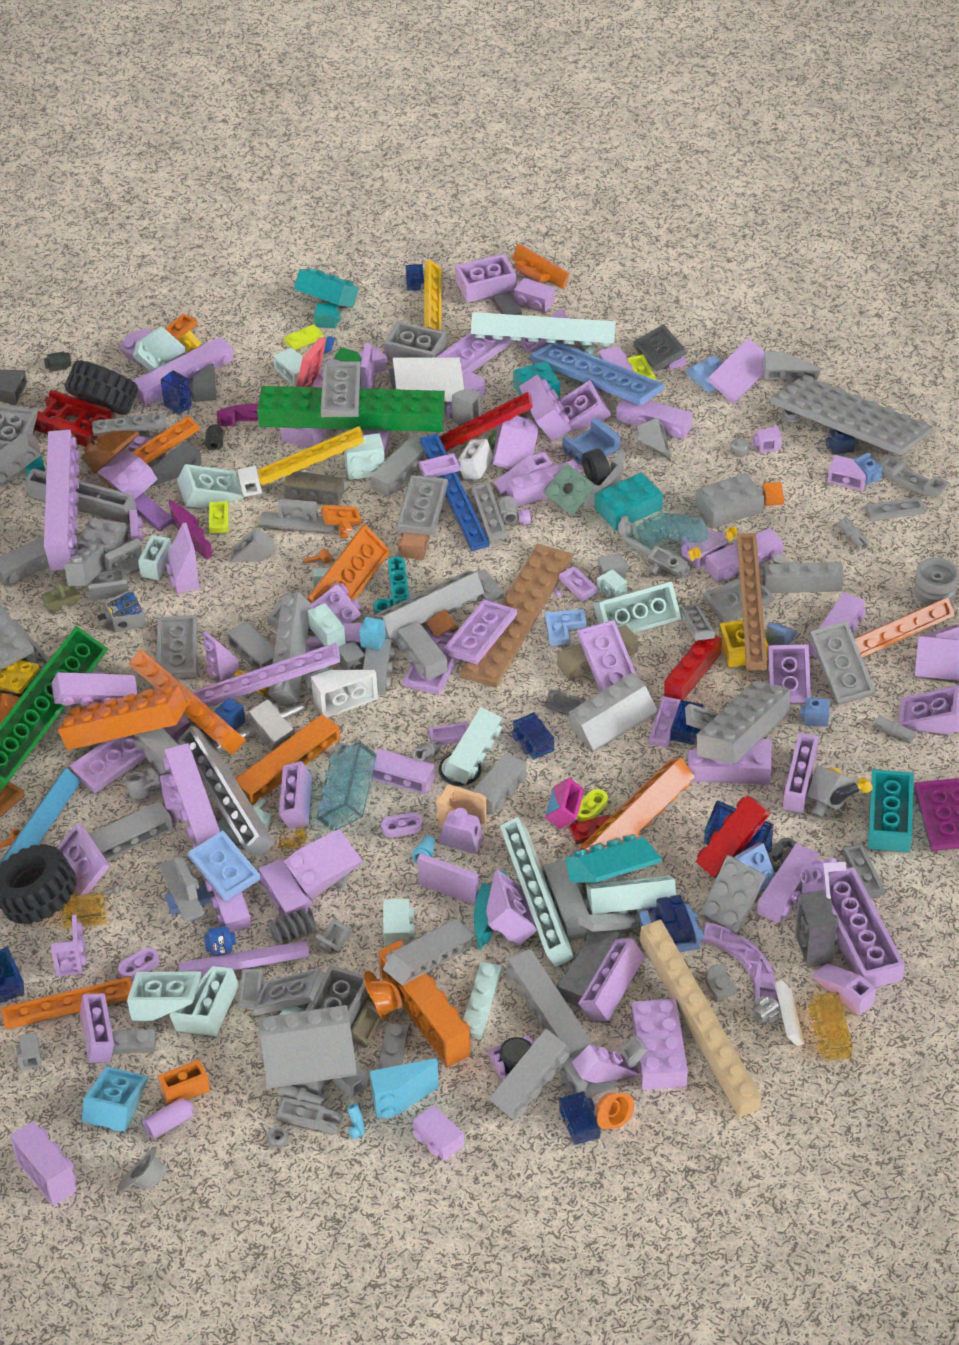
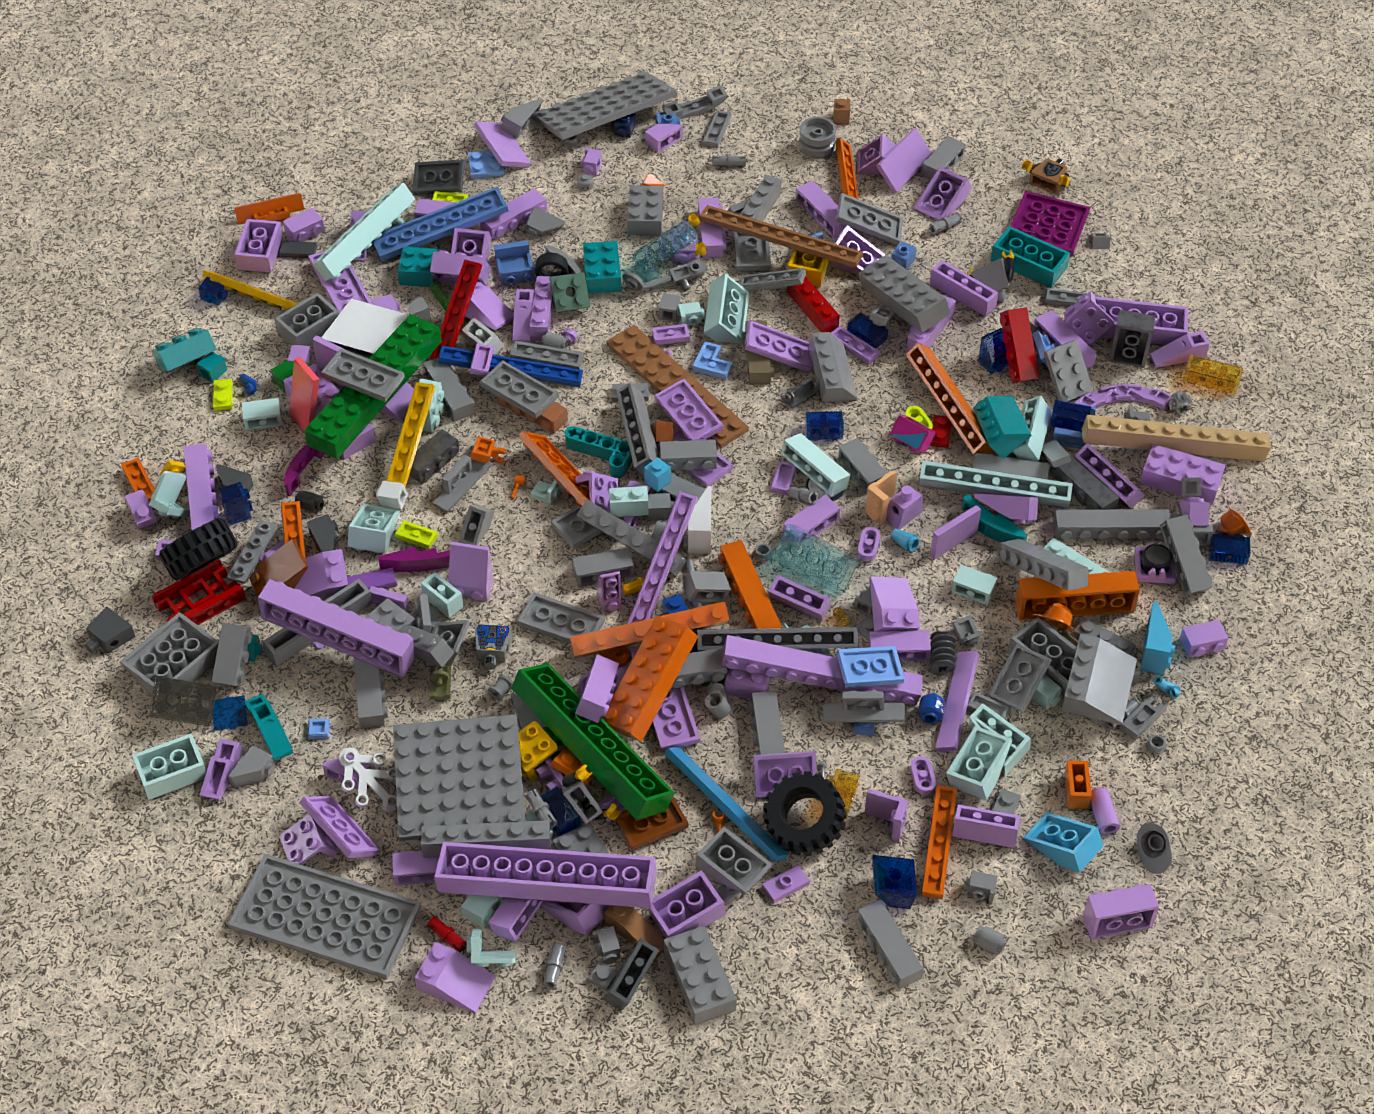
camera: 65 degrees left, 5 degrees up
(57, 361) = (105, 580): pearl dark grey brick -> none
(789, 1013) = (1193, 392): white tile -> none

